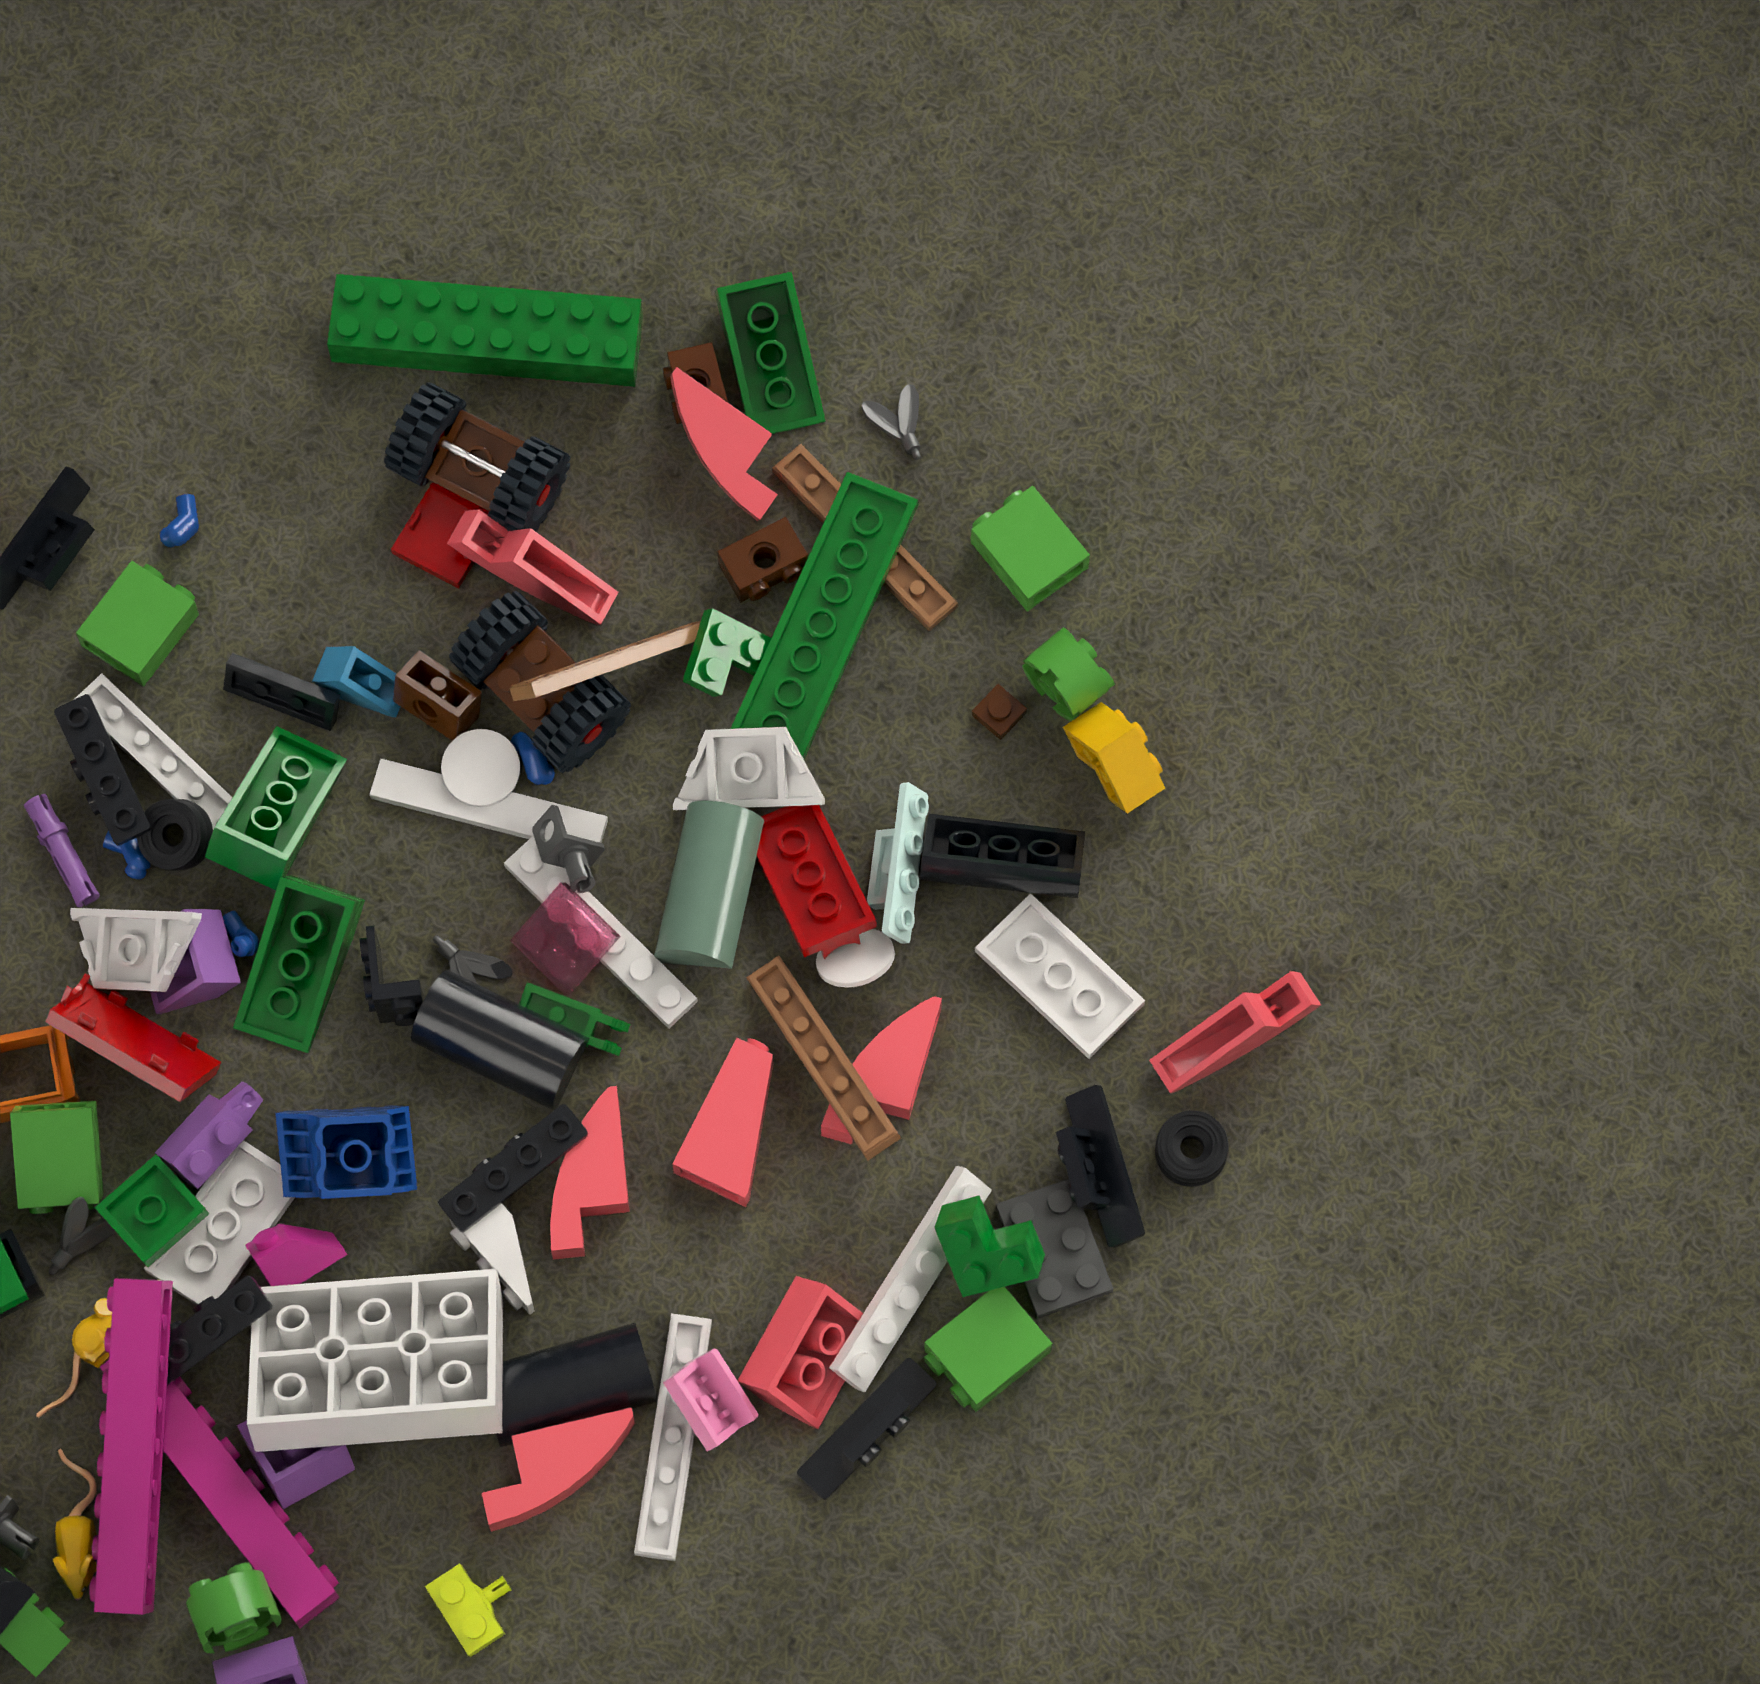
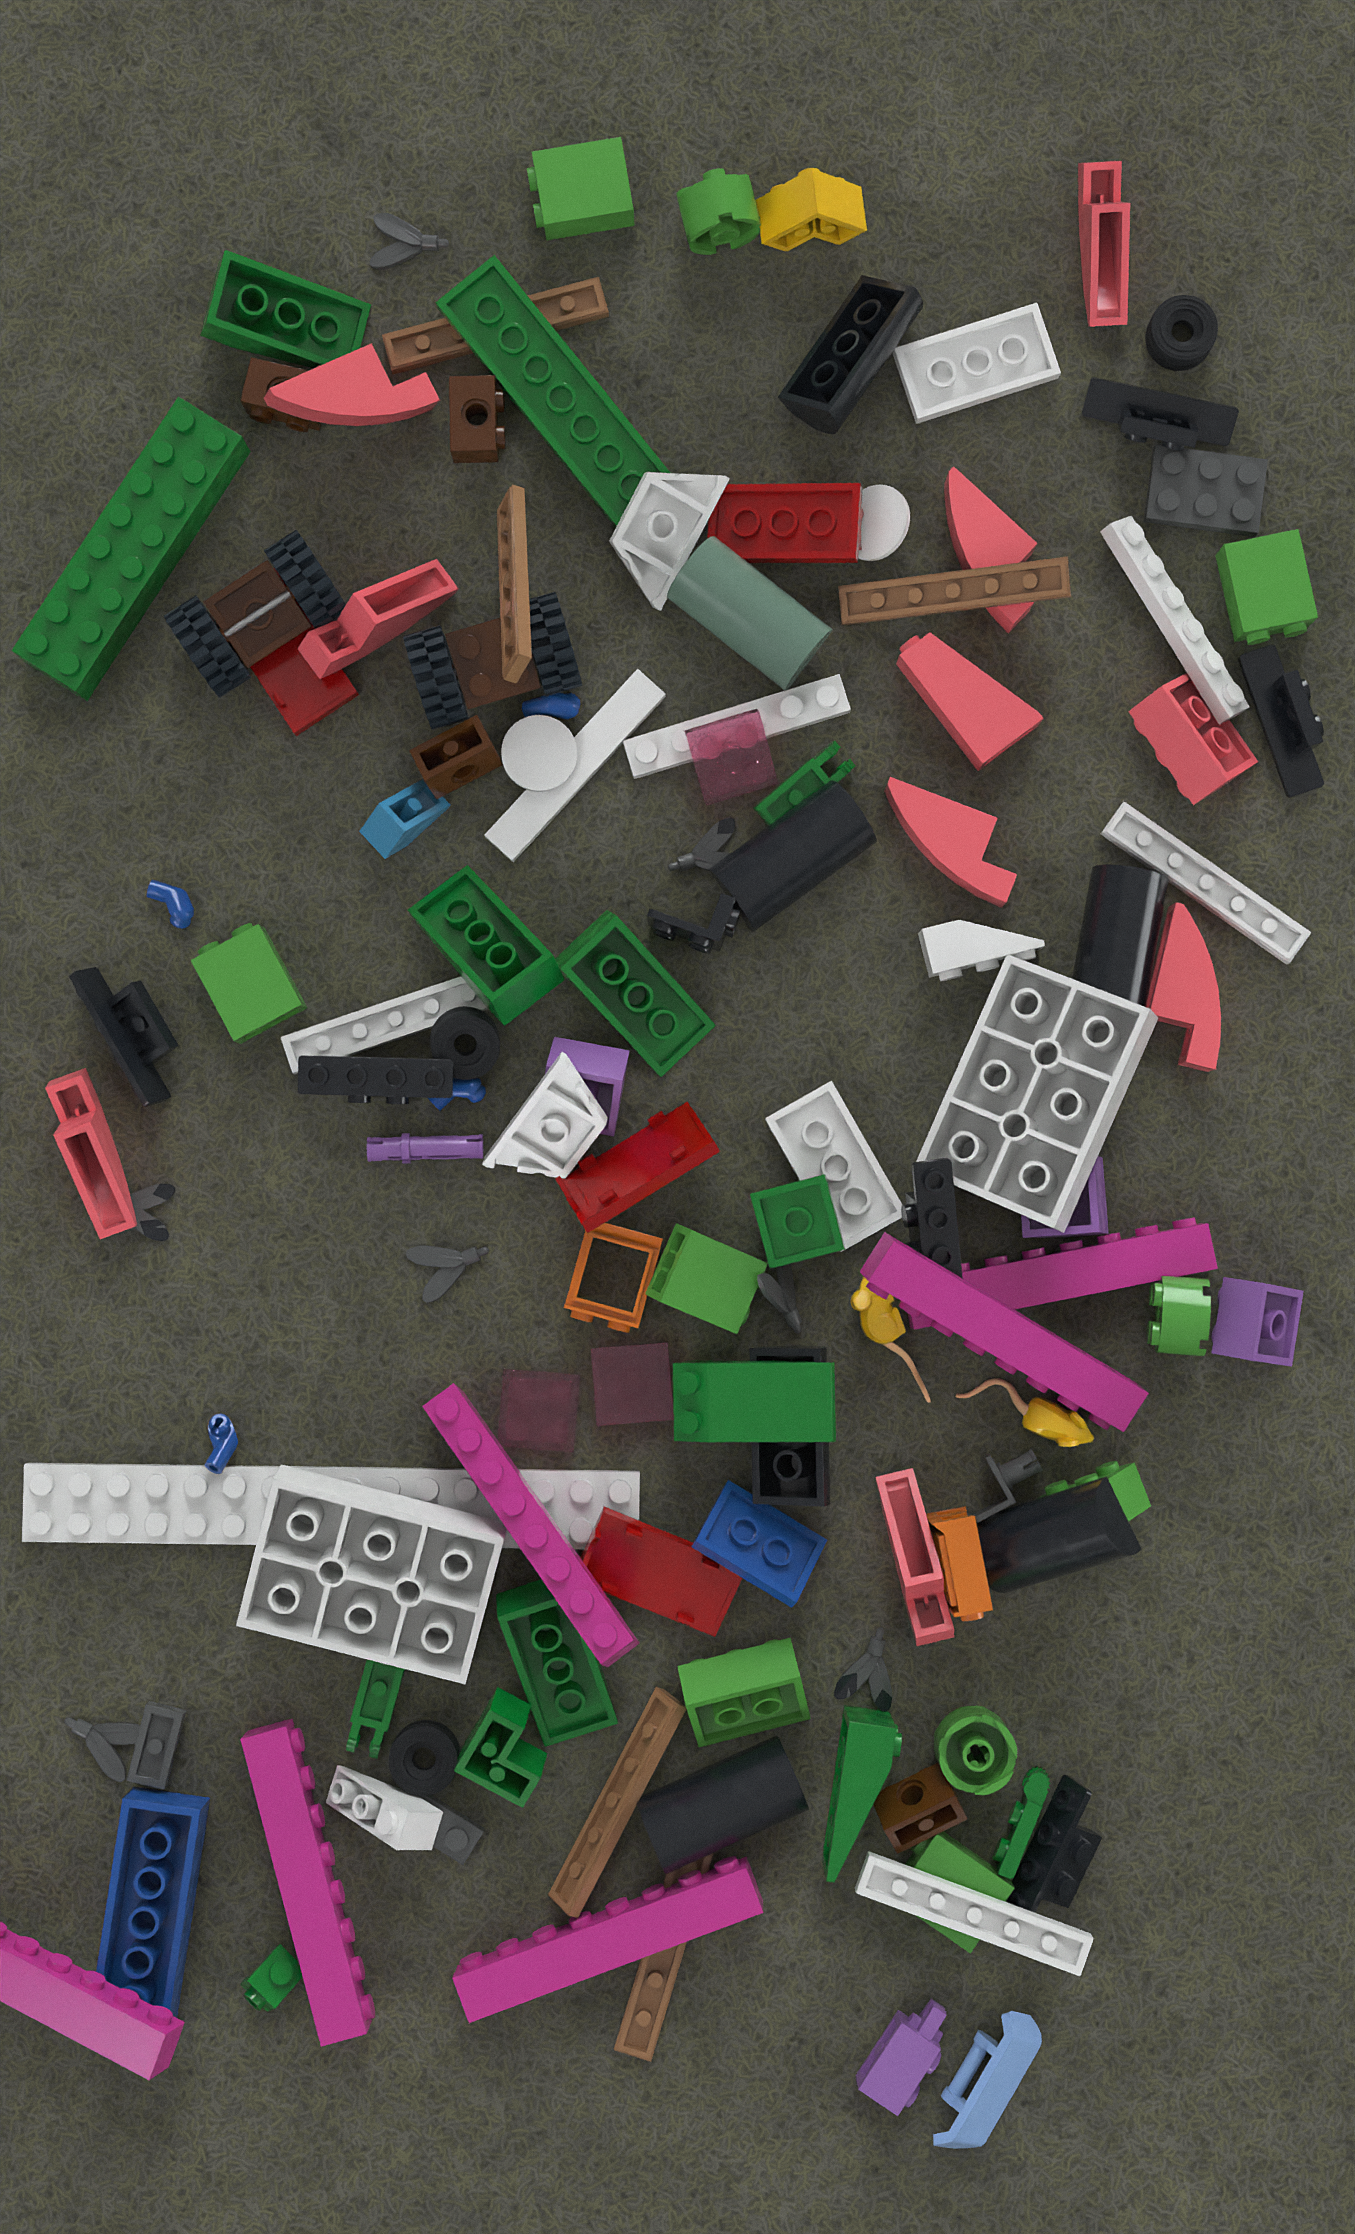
camera: 60 degrees left, 15 degrees up
(210, 1134) = (753, 1140): medium lavender hinge -> none
(243, 940) = (590, 1030): blue arm -> none
(281, 692) = (379, 890): black plate -> none
(293, 1253) = (895, 1119): dark pink slope -> none
(346, 1152) = (829, 1033): blue slope -> none
(468, 1607) = (1265, 1120): neon yellow plate -> none
(512, 1168) = (917, 899): black bracket -> none
(567, 850) = (655, 716): dark grey bracket -> none
(710, 1399) = (1199, 833): bright pink bracket -> none
(719, 645) = (538, 492): plate -> none
(897, 864) = (812, 448): light aqua bracket -> none
(983, 1256) = (1201, 539): green brick -> none
(999, 711) = (714, 293): reddish brown plate -> none

